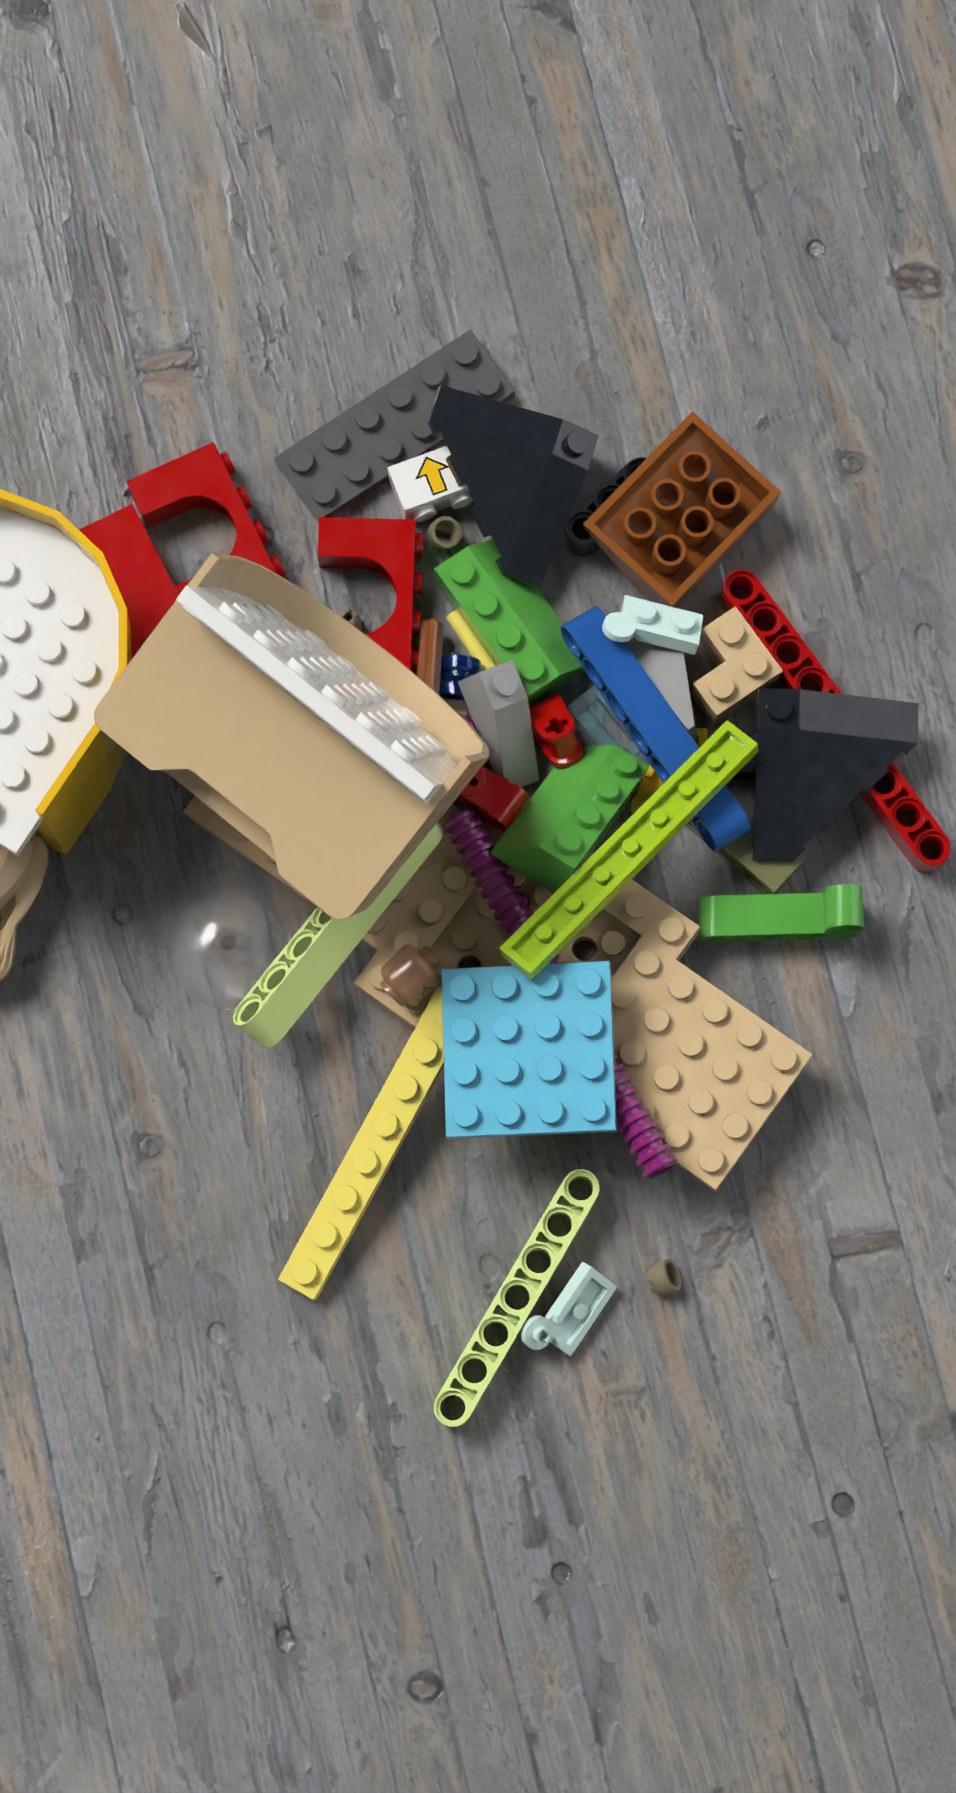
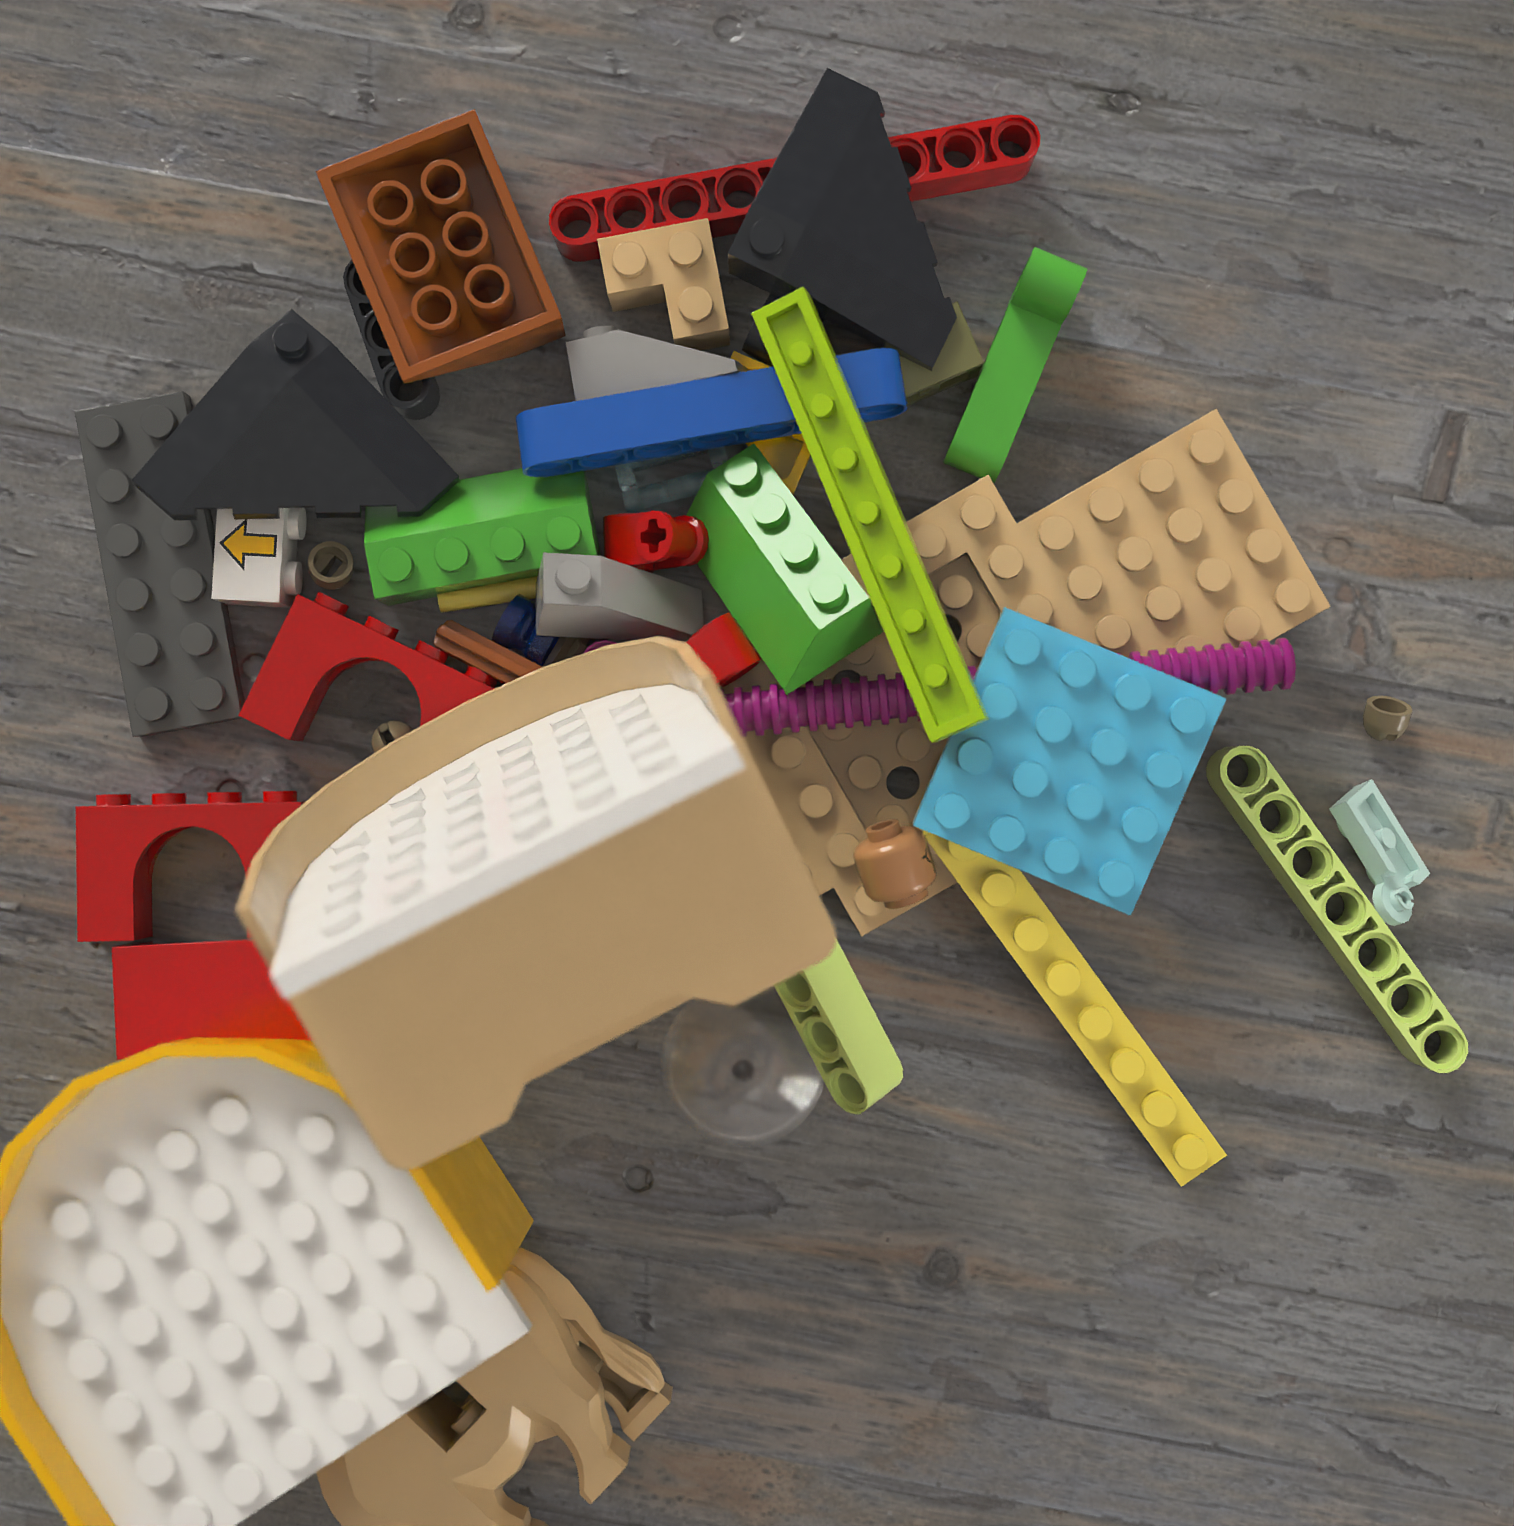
camera: 60 degrees left, 10 degrees up
(654, 625) = (577, 351): light aqua hinge -> none

